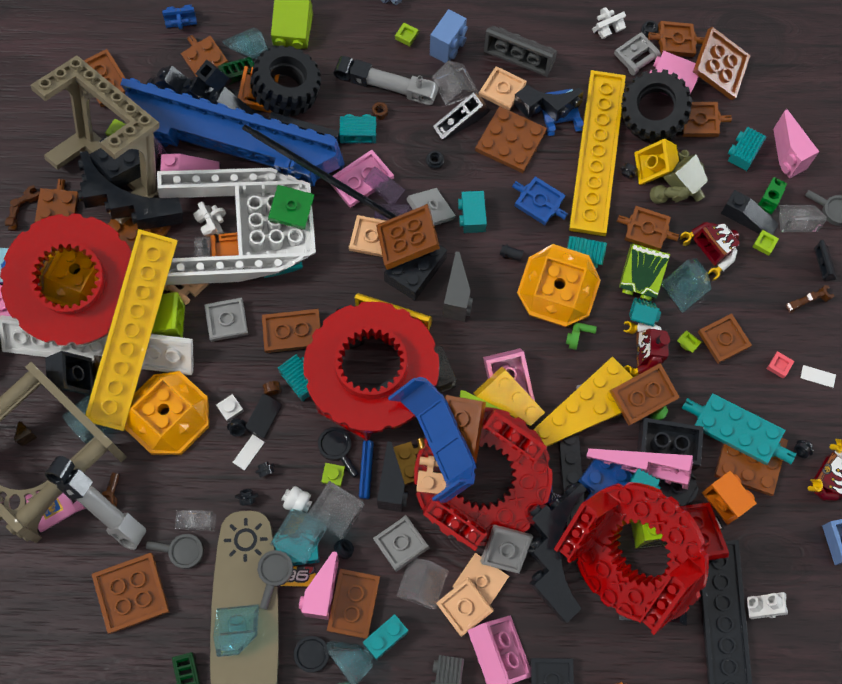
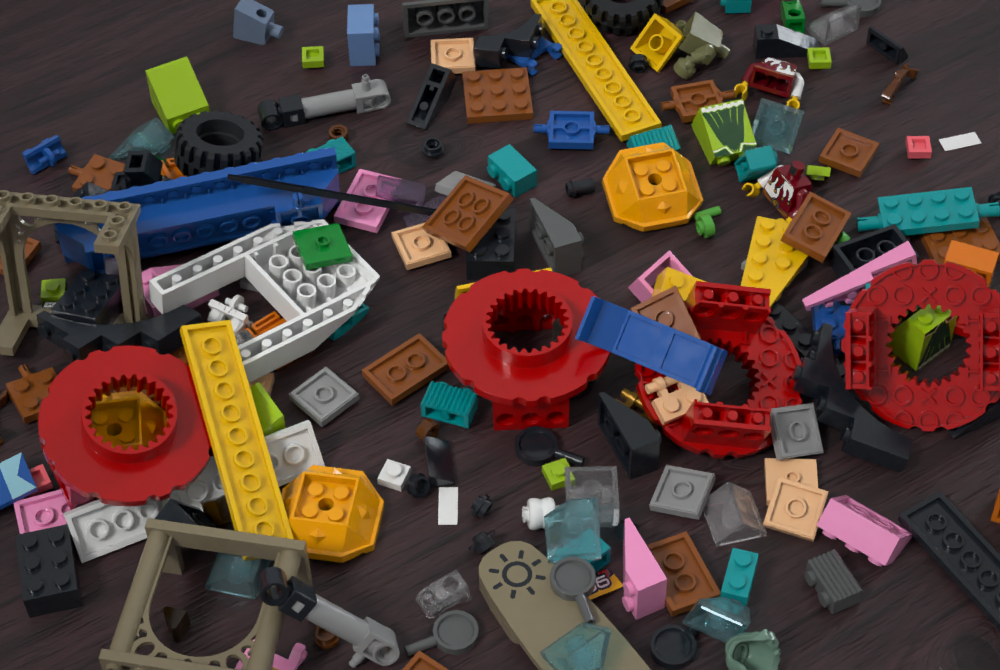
camera: 30 degrees left, 20 degrees down
(366, 469) = (586, 444): blue axle -> none
(454, 82) = (400, 76): clear slope -> none

